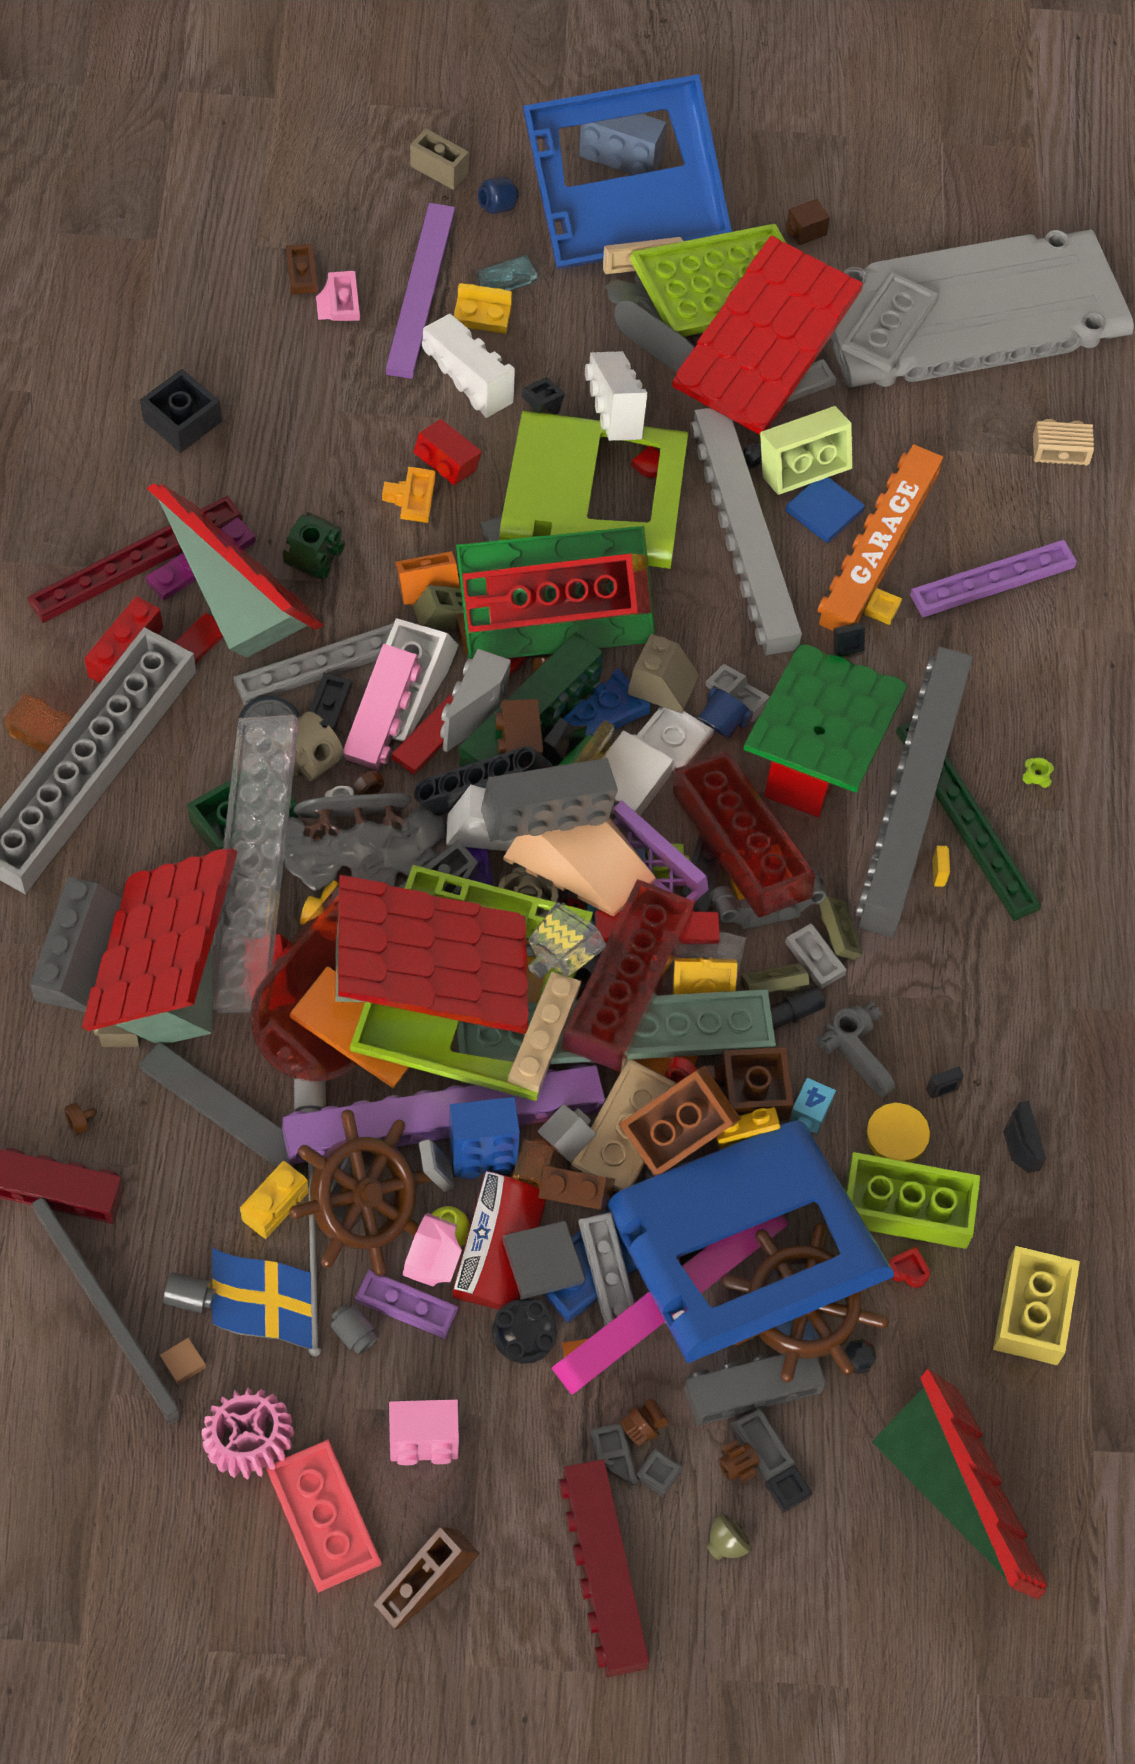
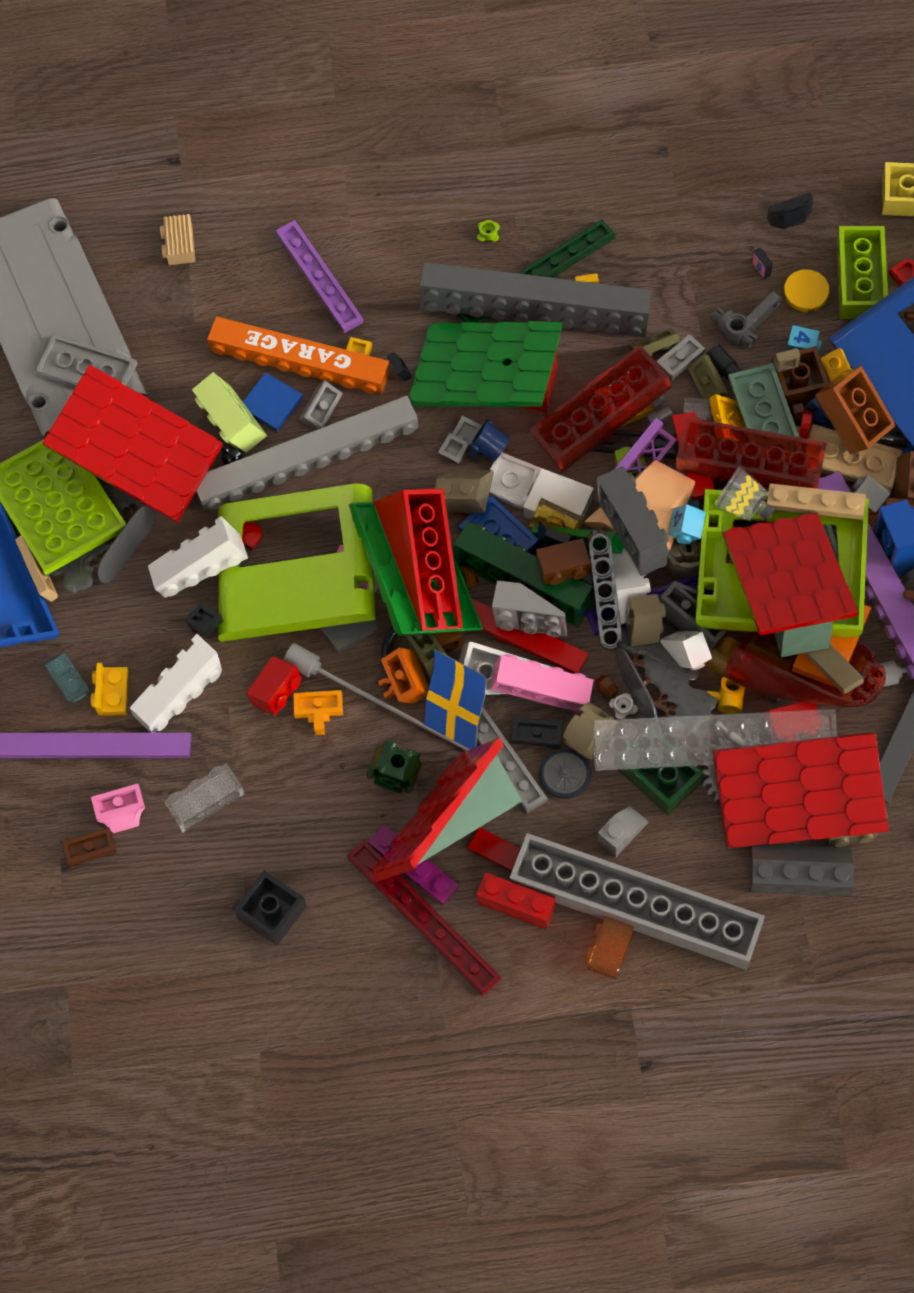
camera: 90 degrees left, 5 degrees up
(181, 765) = (621, 830): none -> light grey slope
(245, 876) = (733, 736): none -> light grey piece
(307, 1005) = (835, 668): none -> dark tan tile
(331, 373) = (204, 797): none -> clear brick
(388, 865) = (687, 648): none -> white slope
(390, 613) = (451, 702): none -> flag
(436, 824) = (644, 620): none -> dark tan brick
(547, 882) = (686, 524): none -> medium azure brick
(770, 1054) = (787, 360): none -> dark tan tile
(811, 557) = (320, 405): none -> light grey slope

